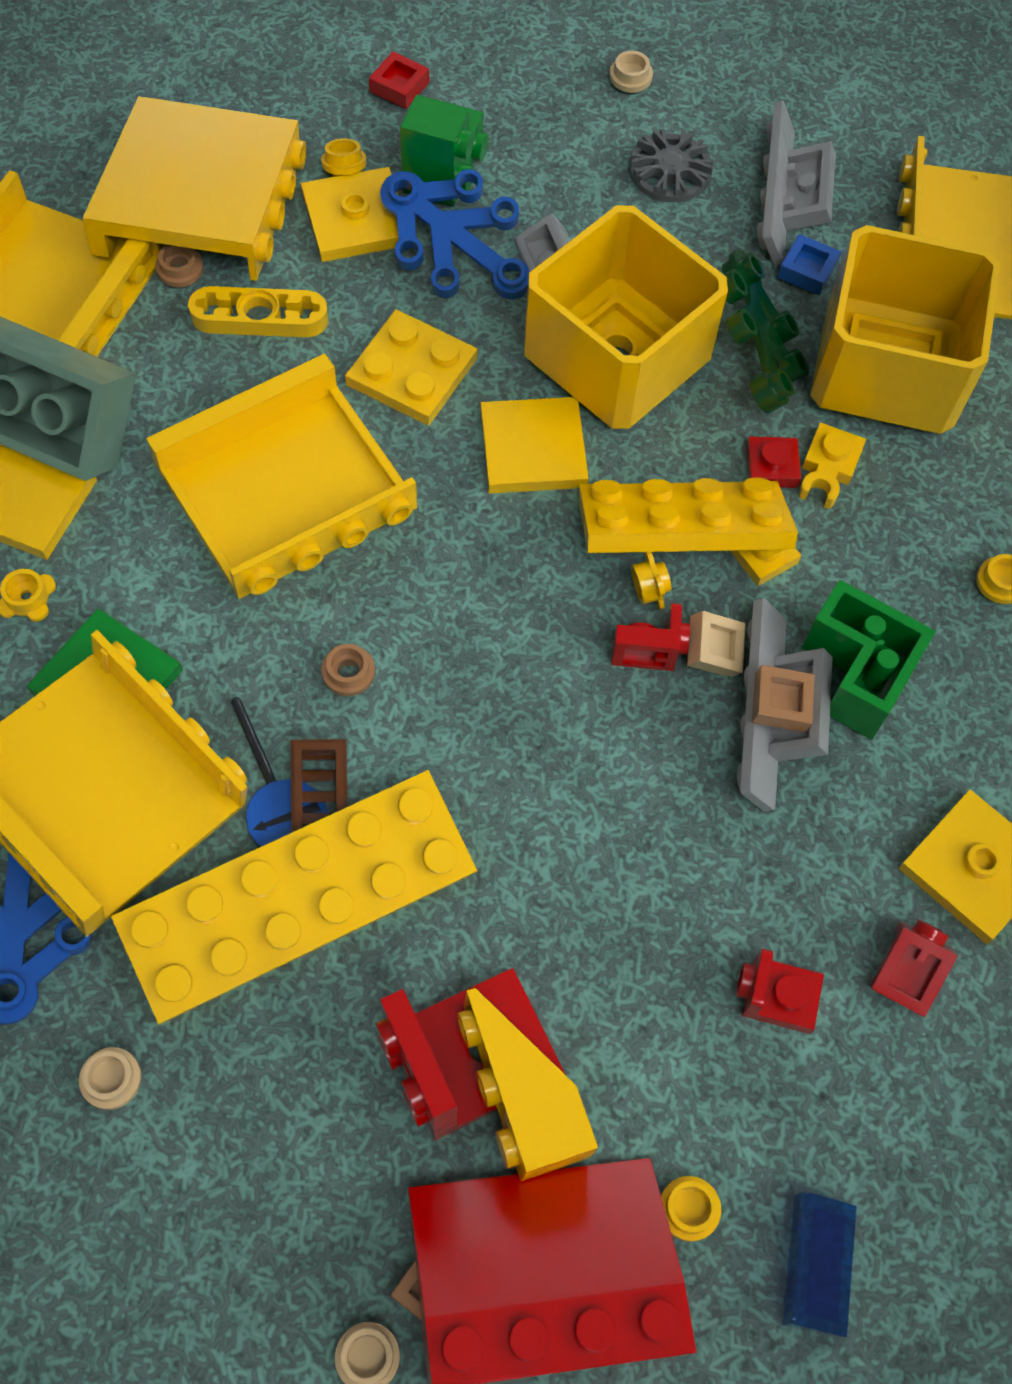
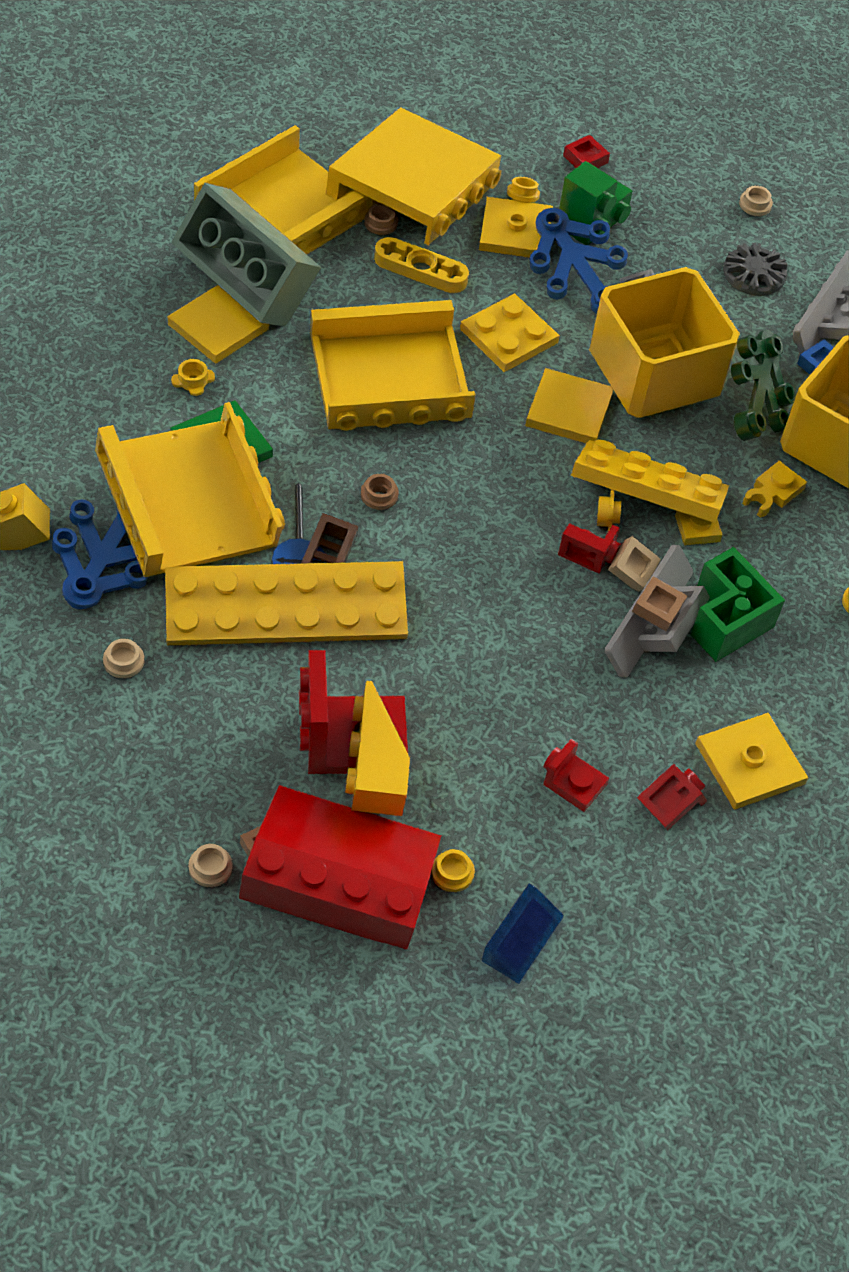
camera: 20 degrees right, 10 degrees down
(774, 460) = (735, 472): red plate -> none

